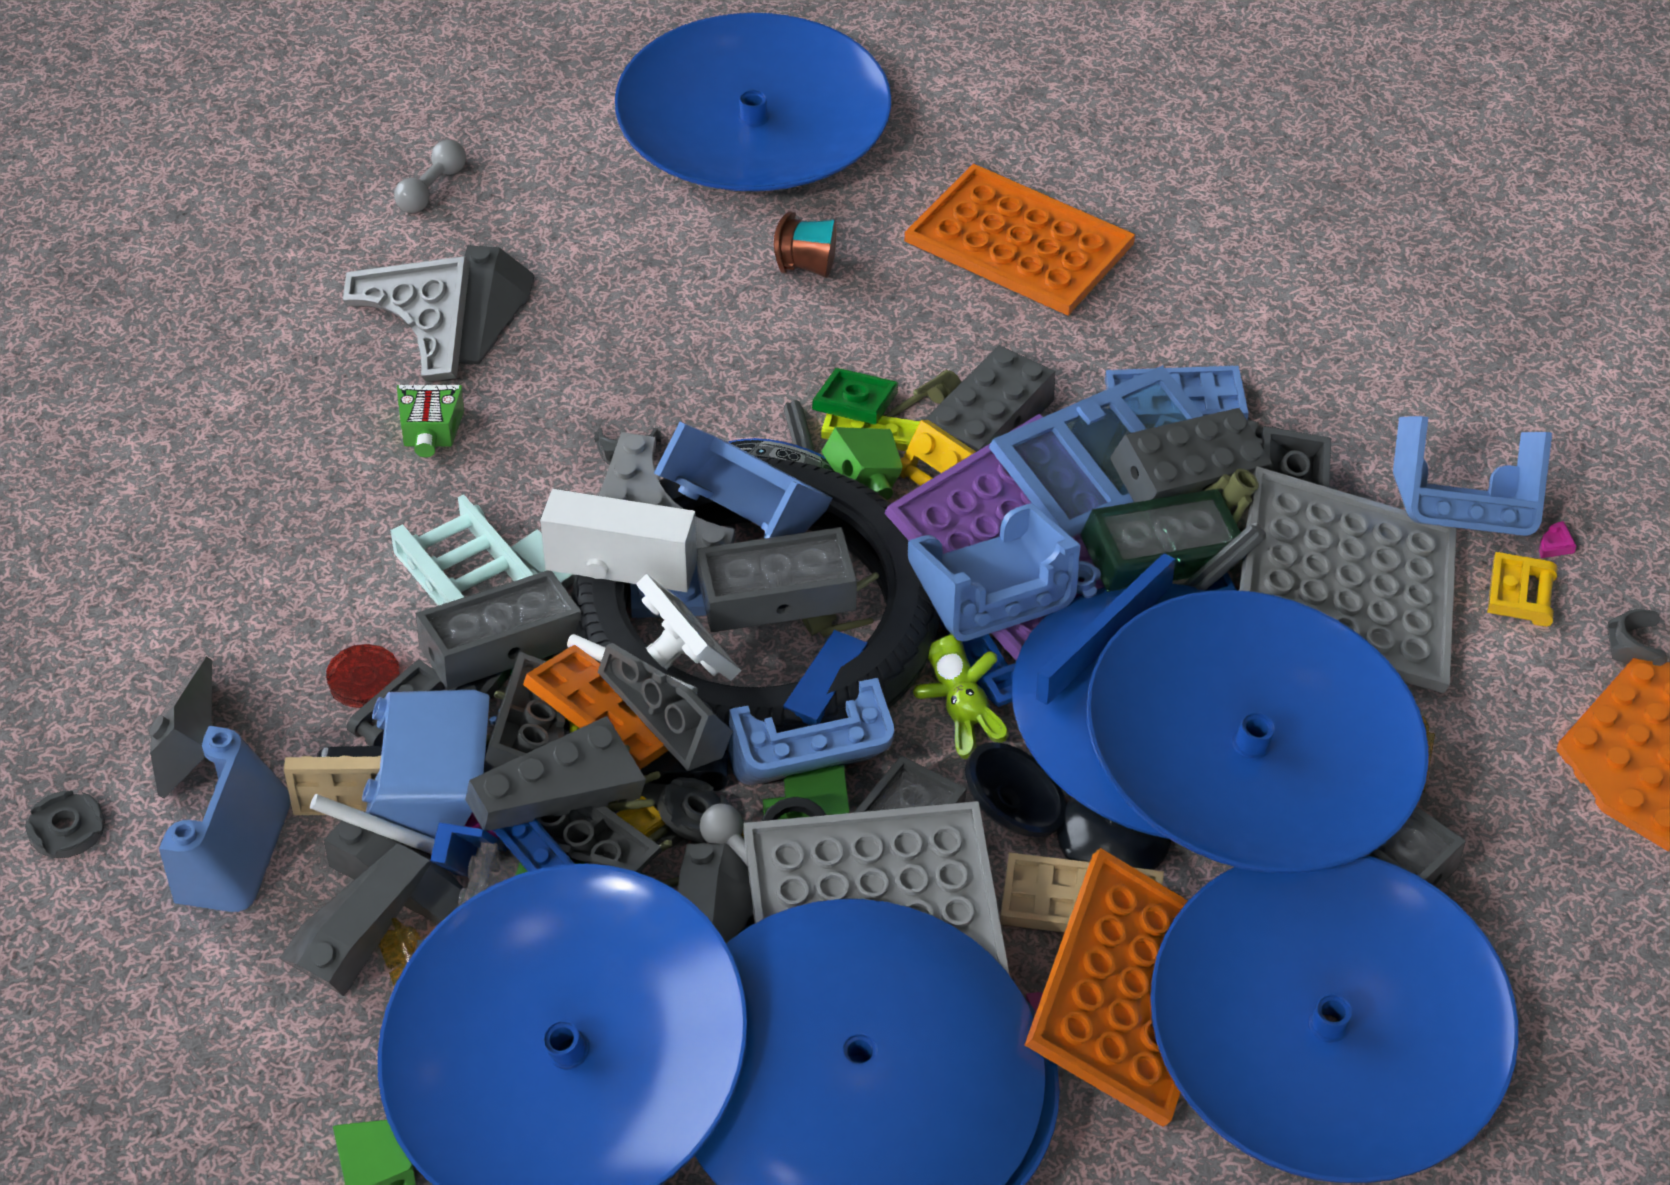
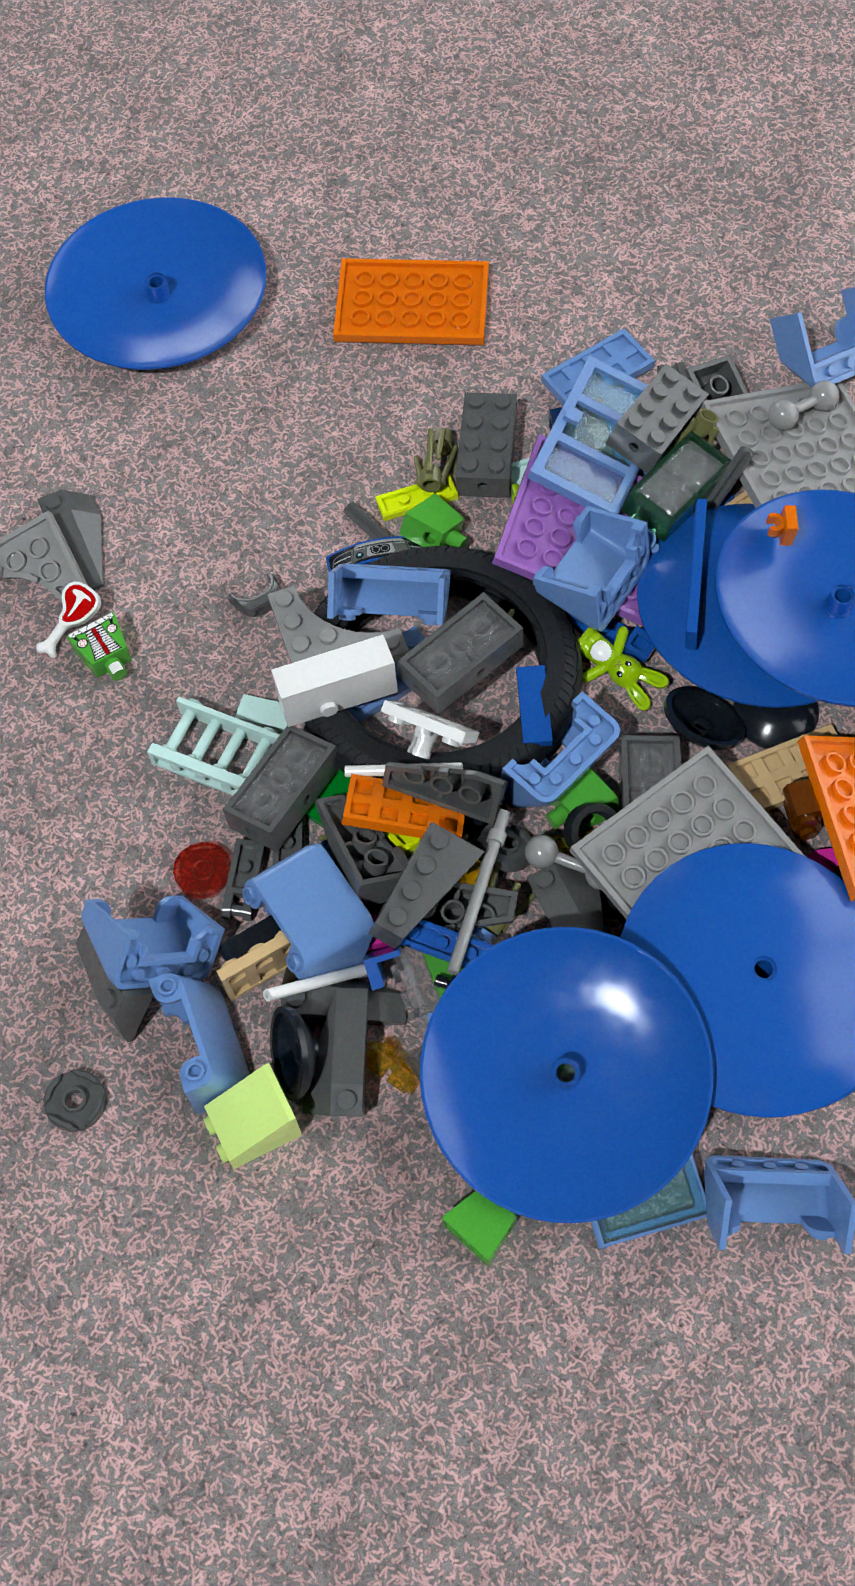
camera: 25 degrees left, 15 degrees up
(218, 694) = (173, 941): none -> medium blue windscreen
(222, 928) = (251, 1118): none -> yellowish green slope
(312, 883) = (292, 1052): none -> black dish
(433, 365) = (79, 607): none -> white piece
(675, 784) = (495, 840): none -> light grey bar
(805, 244) = (276, 379): copper hat -> none
(855, 396) = (388, 478): green tile -> none
(900, 410) = (430, 477): none -> olive plant
(934, 448) = (484, 494): yellow plate -> none
(1048, 929) = (802, 809): none -> reddish brown brick
(1235, 617) = (785, 523): none -> orange tile
(1344, 521) = (785, 413): none -> light grey piece

